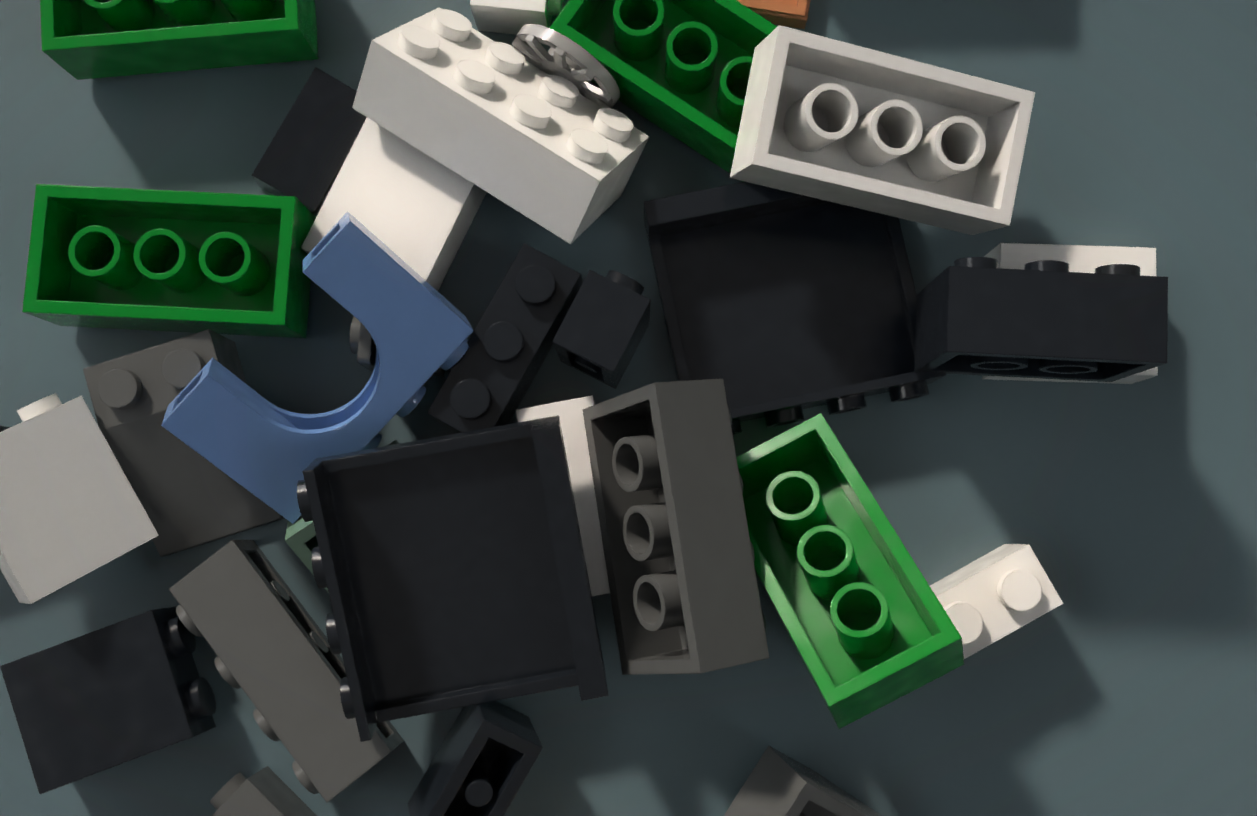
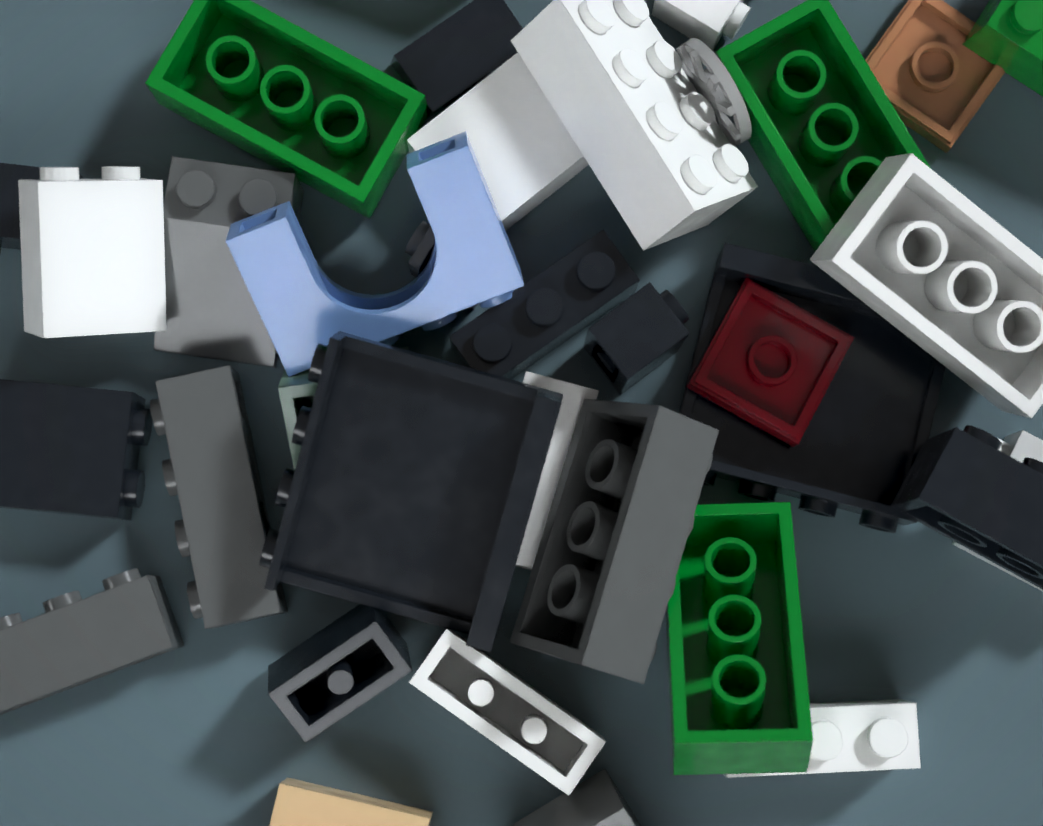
camera: 20 degrees right, 0 degrees up
(654, 739) = (508, 711): none -> white brick
(738, 292) = (770, 362): none -> dark red tile

